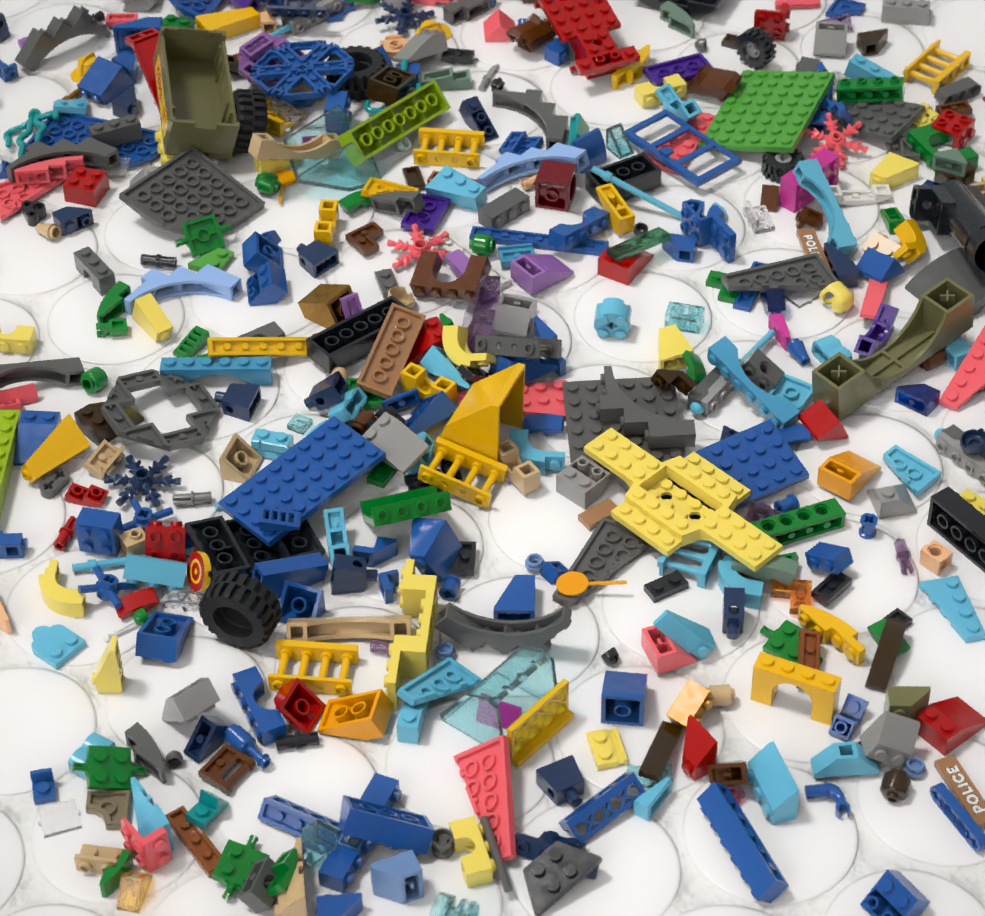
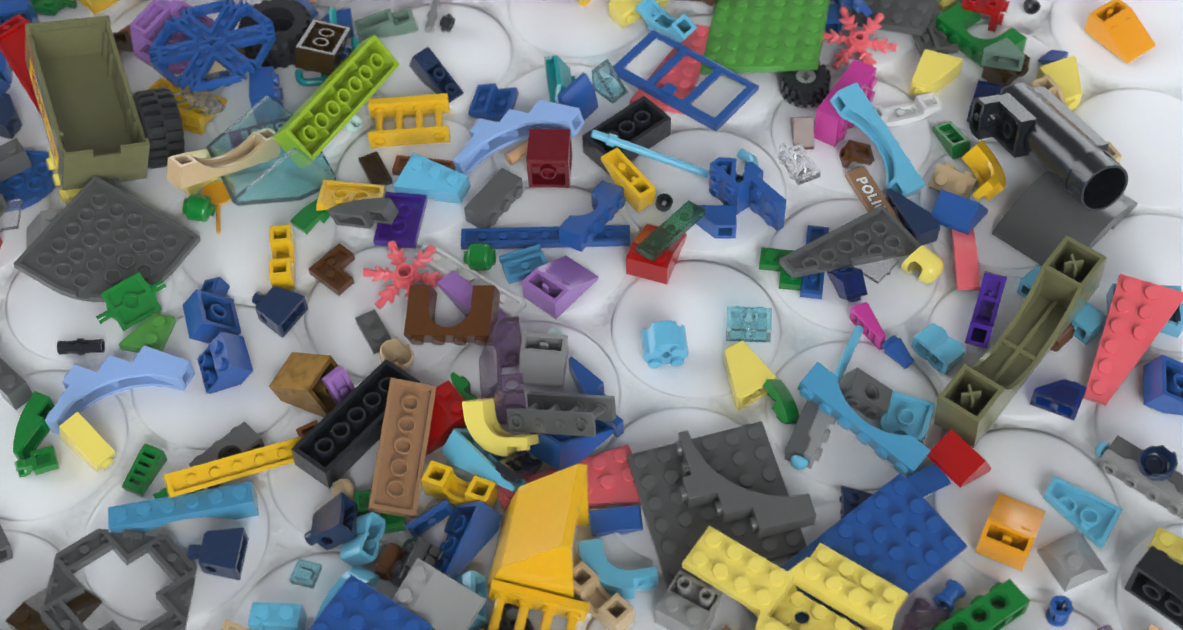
camera: 10 degrees left, 10 degrees up
(94, 380) = (25, 553): green head -> none
(532, 106) = (508, 54): dark grey arch -> none
(665, 378) = (758, 435): dark brown slope -> none

